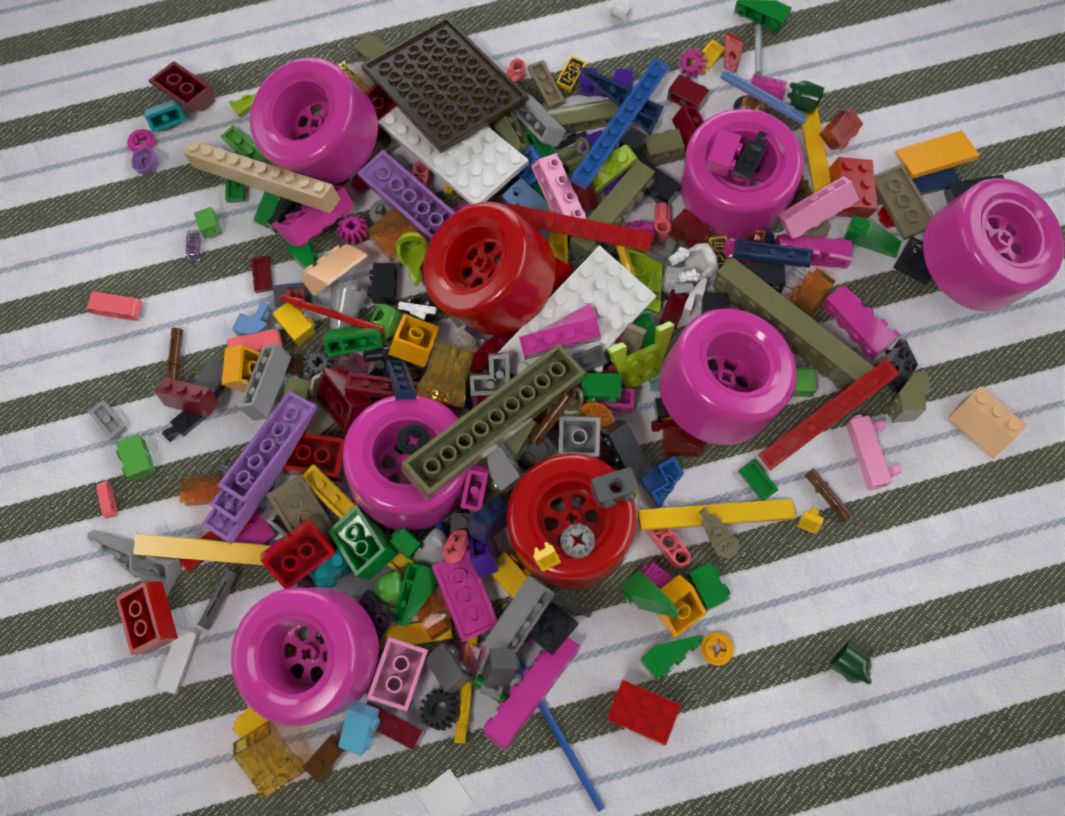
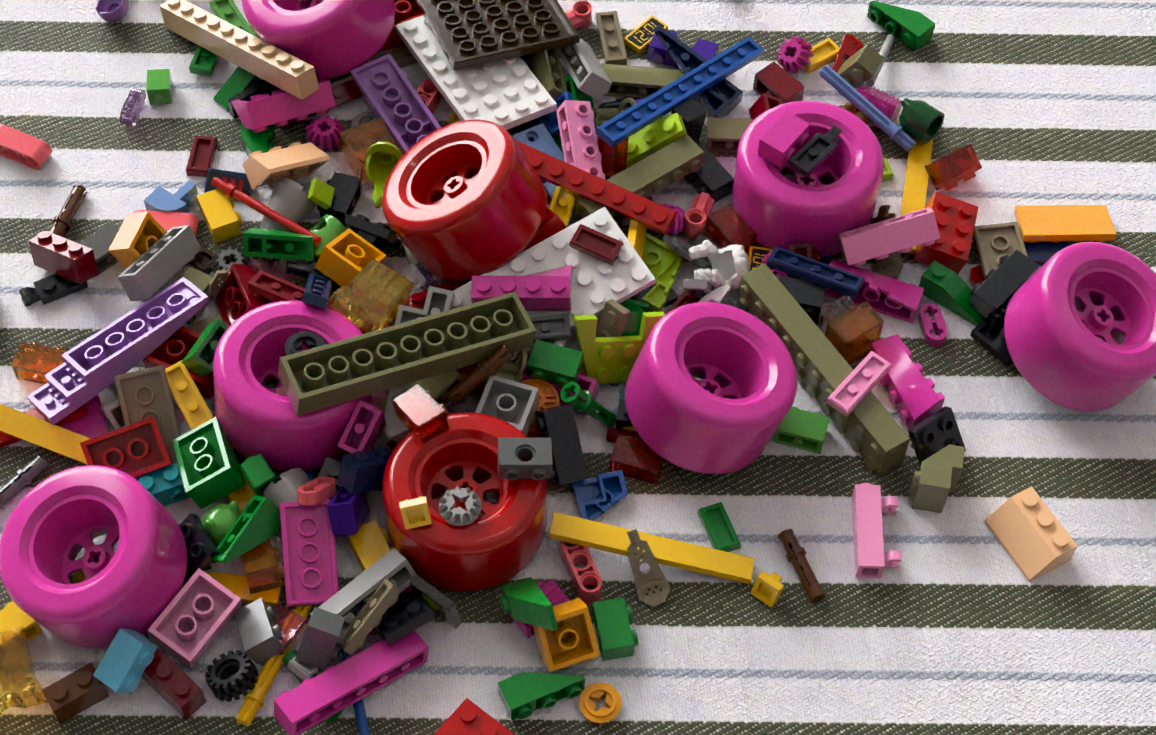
camera: 10 degrees right, 15 degrees down
(331, 450) = (202, 353): none -> green brick
(370, 286) = (321, 193): none -> lime tile
(521, 470) = (420, 413): none -> clear red brick
(531, 636) = (370, 616): none -> dark tan plate
(603, 280) = (596, 244): none -> dark red tile
(632, 412) = (604, 416): none -> green pin
(747, 61) = (860, 66): none -> olive brick
(829, 414) = (826, 466): red plate -> none
(834, 340) = (859, 383): none -> bright pink tile
(863, 266) = (937, 324): none -> dark pink beam
(910, 222) = (1002, 284): none -> black brick

